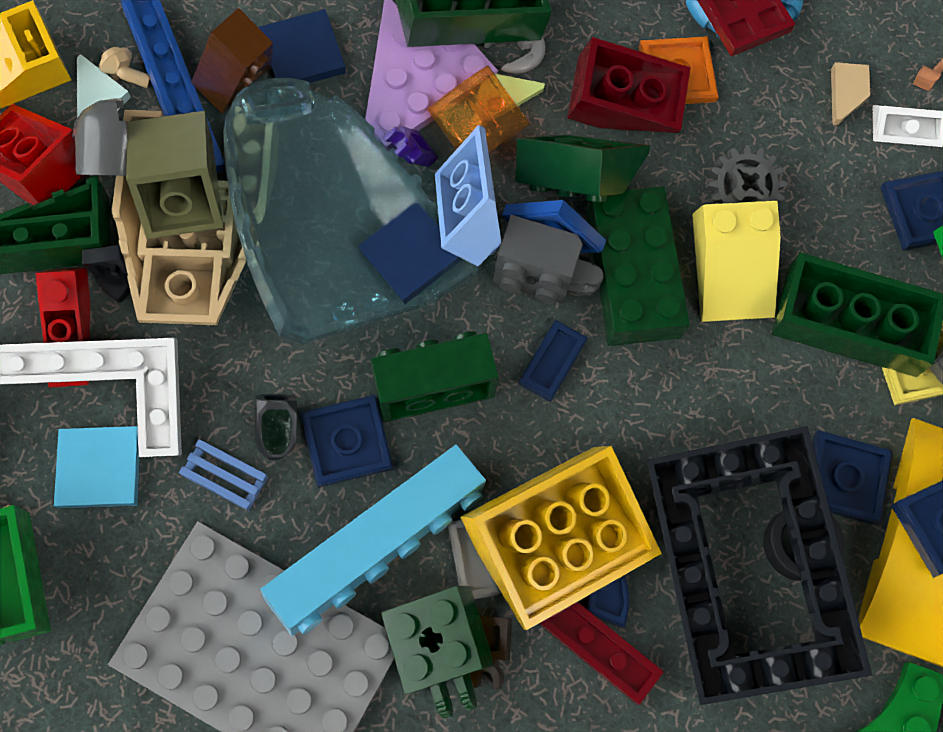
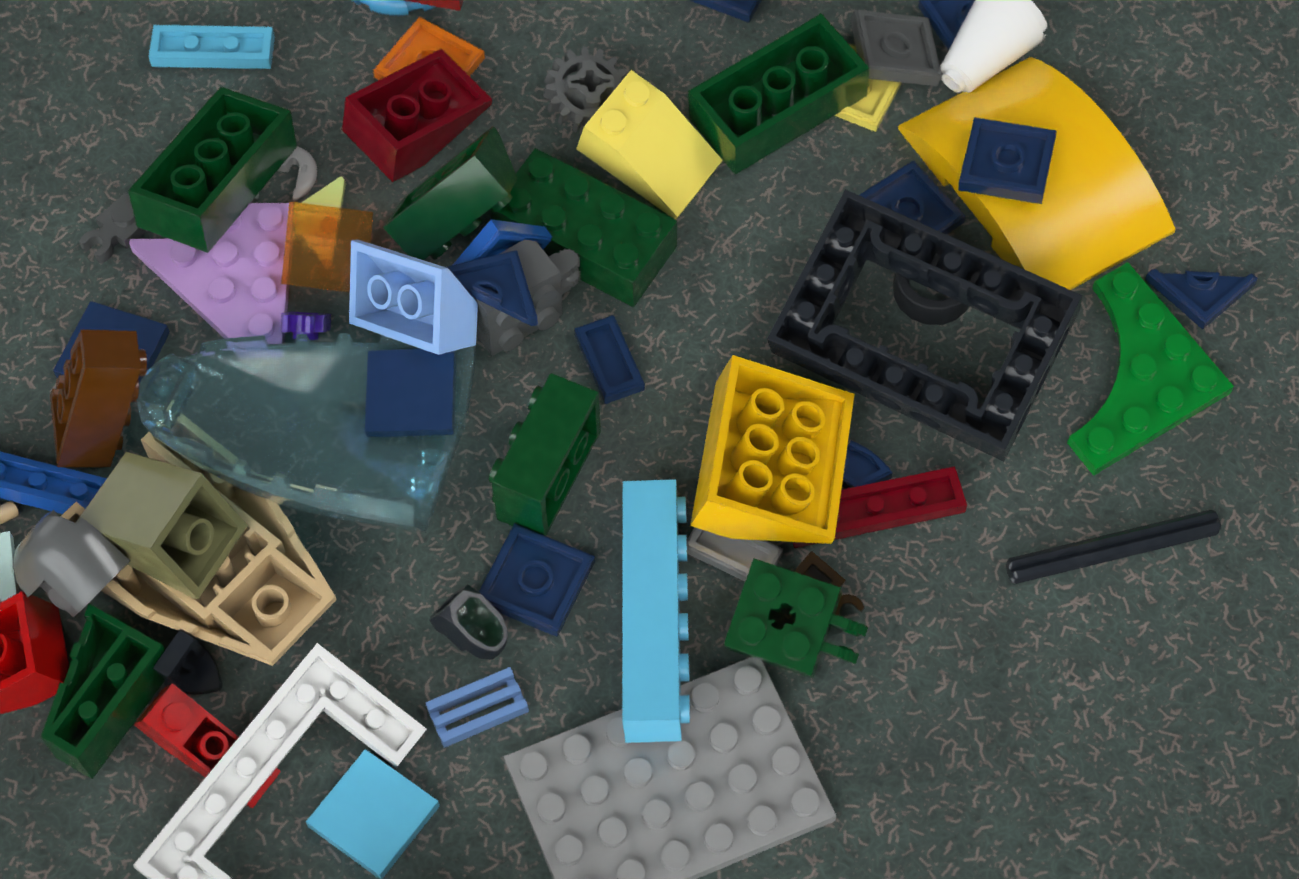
camera: 45 degrees left, 10 degrees down
(525, 243) = (498, 283): none -> dark blue tile

